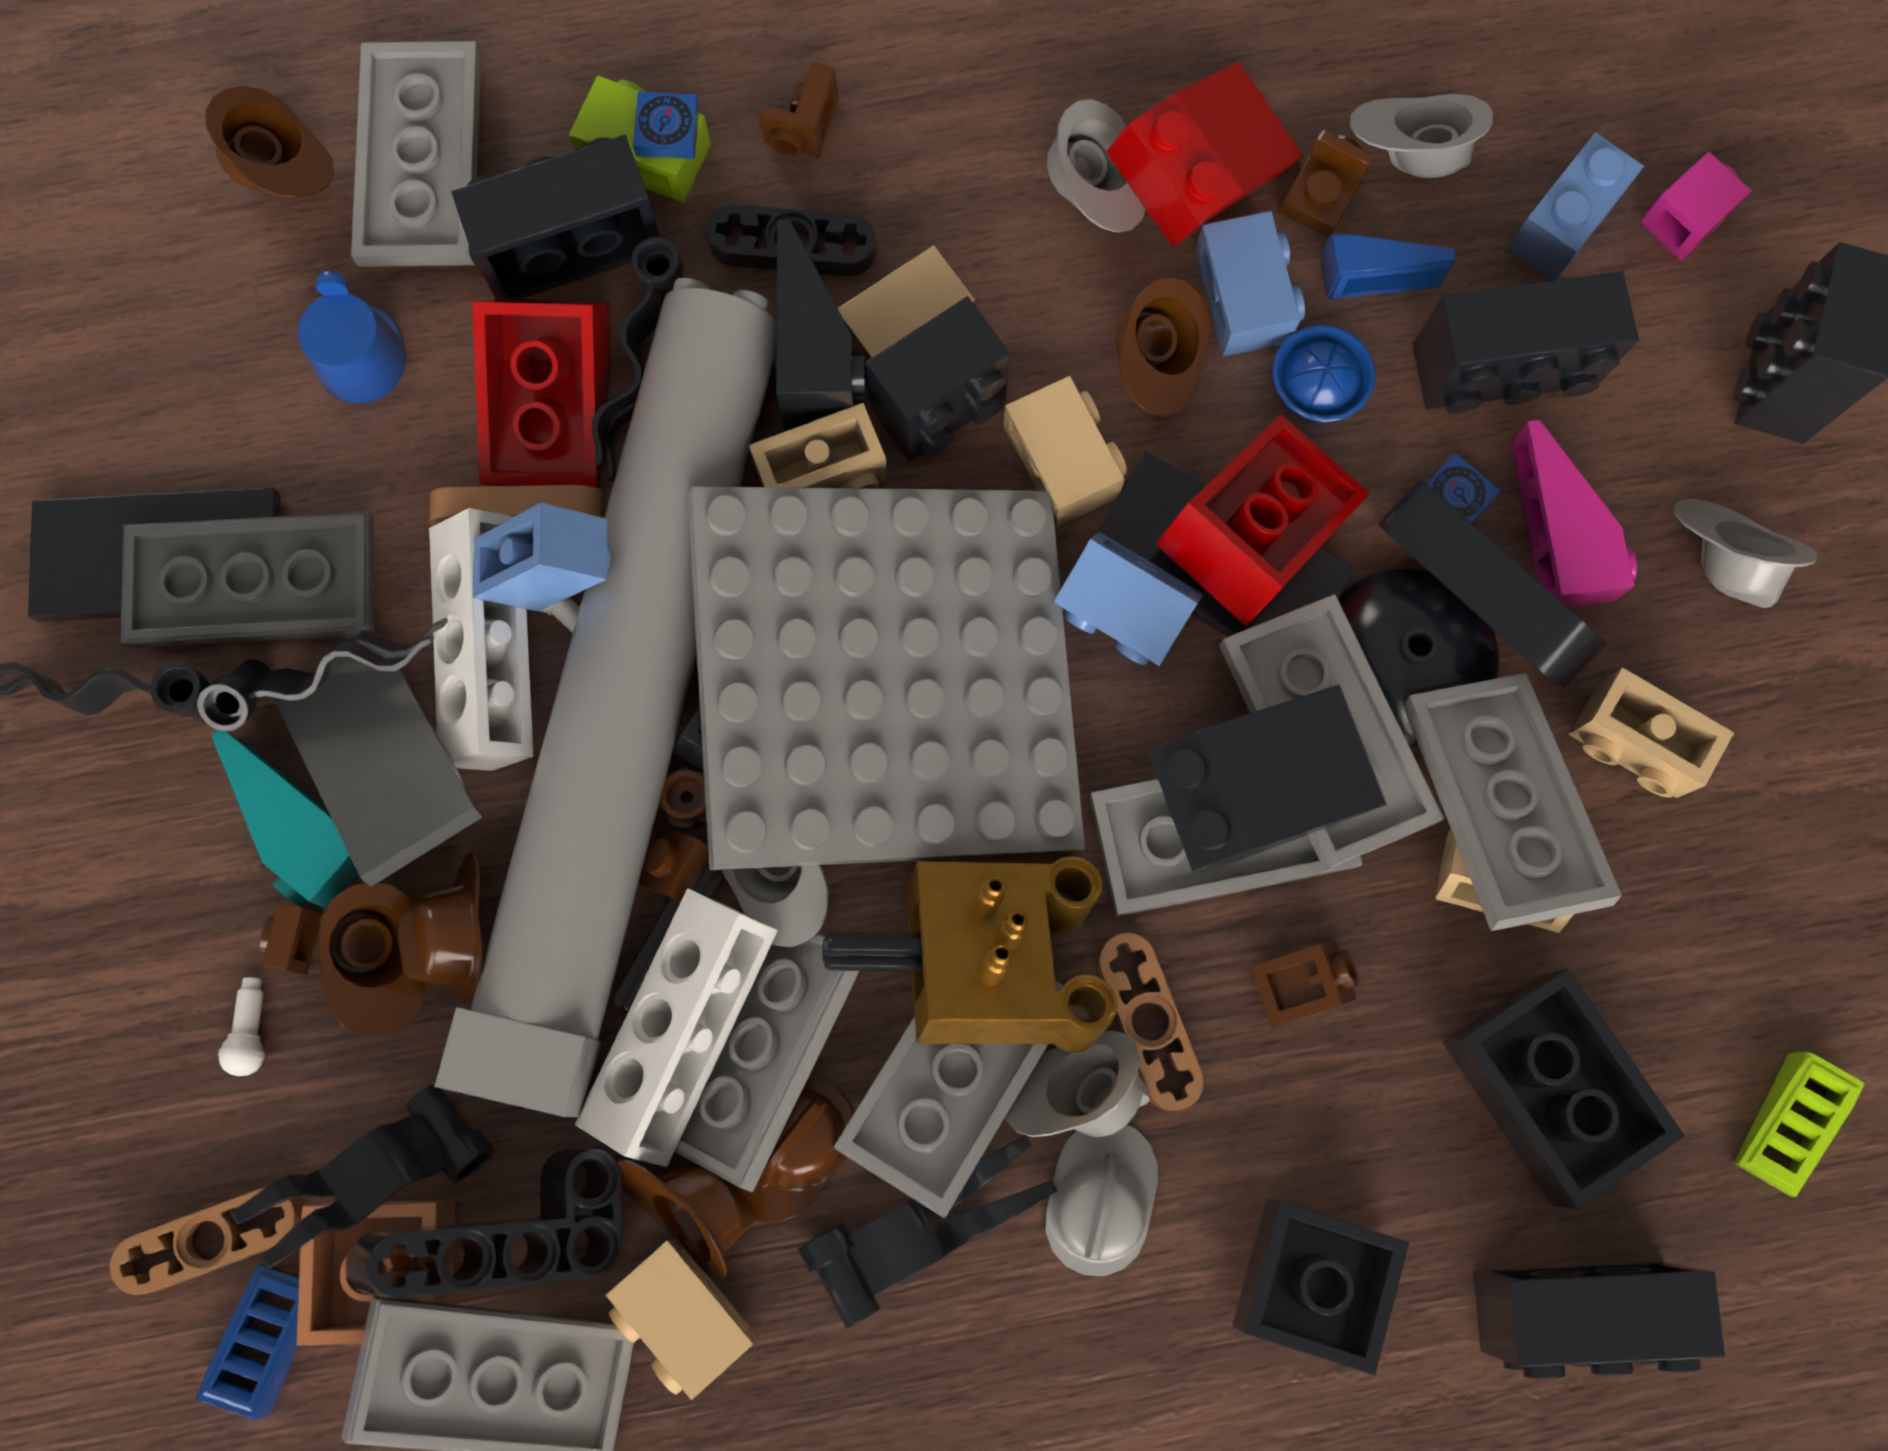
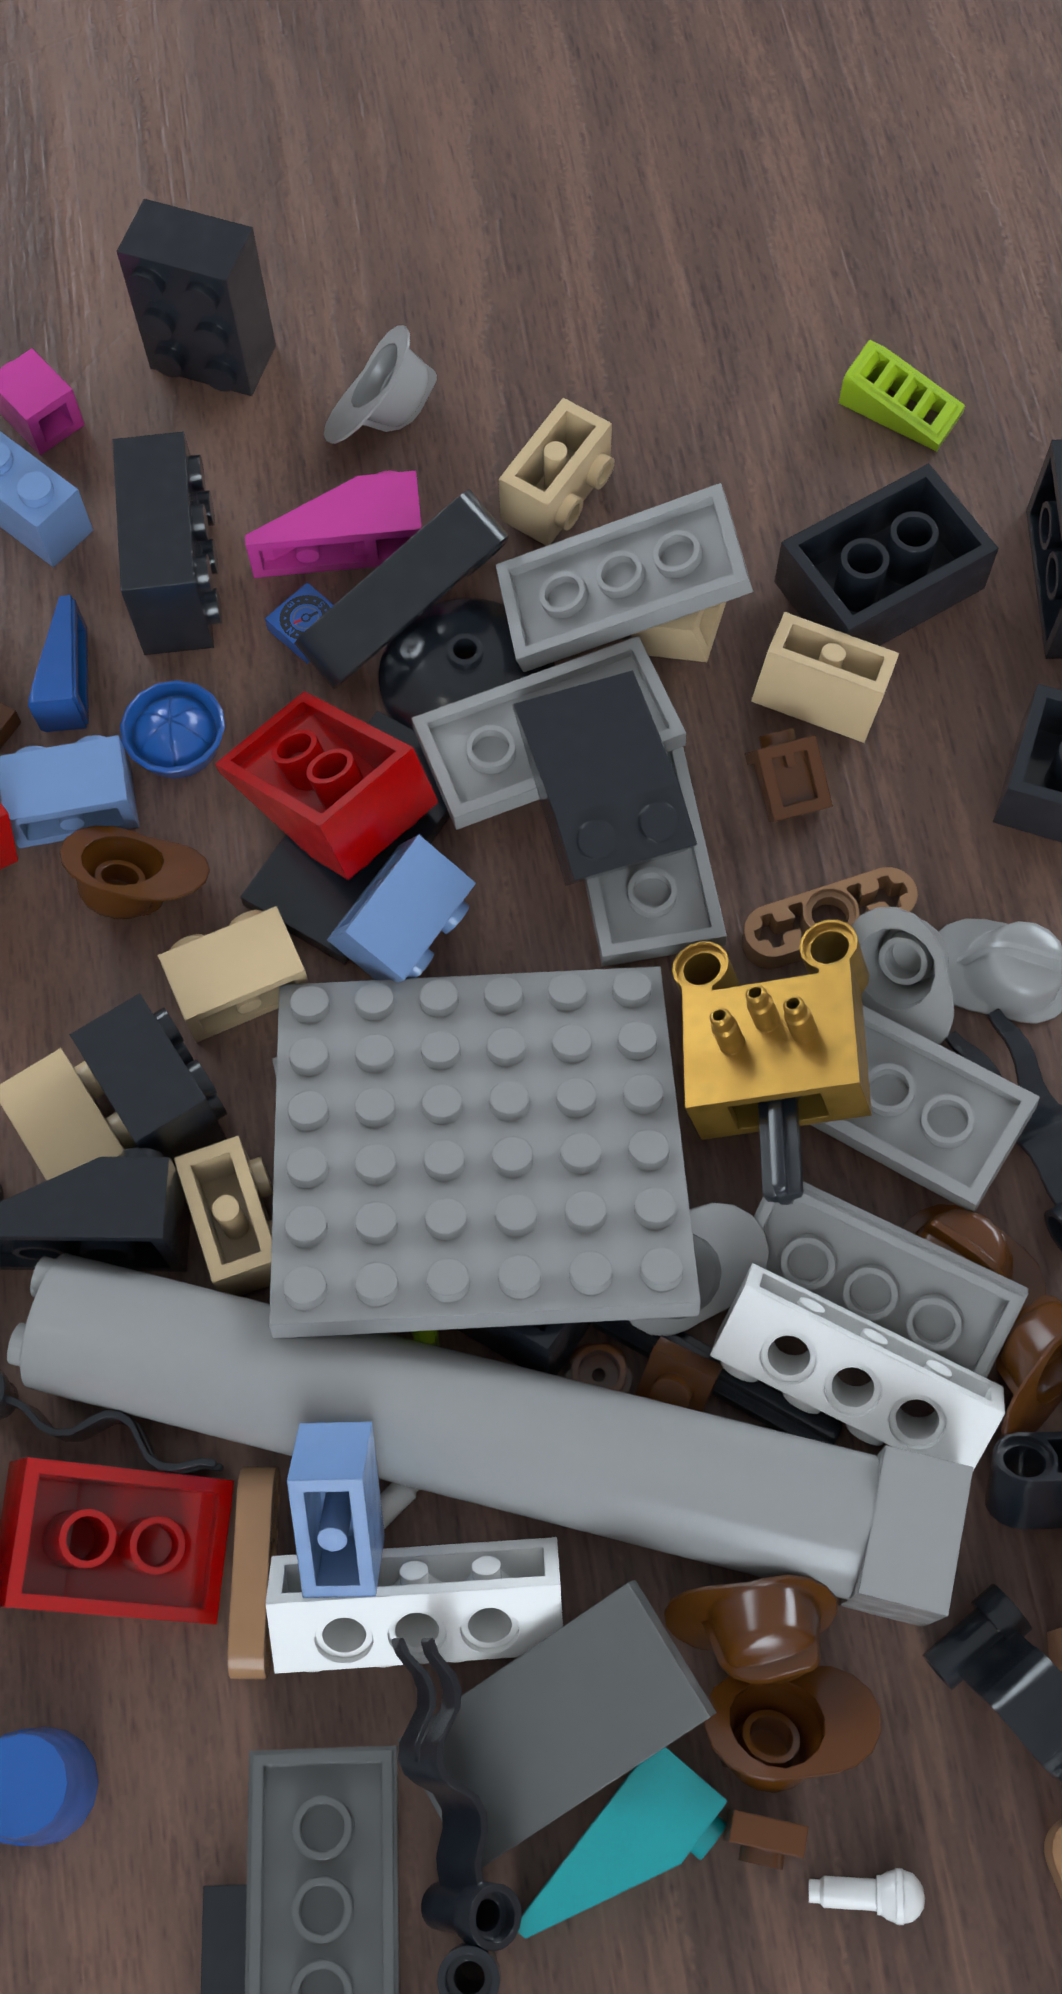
camera: 85 degrees left, 10 degrees down
(1416, 1017) = (824, 677): none -> tan brick

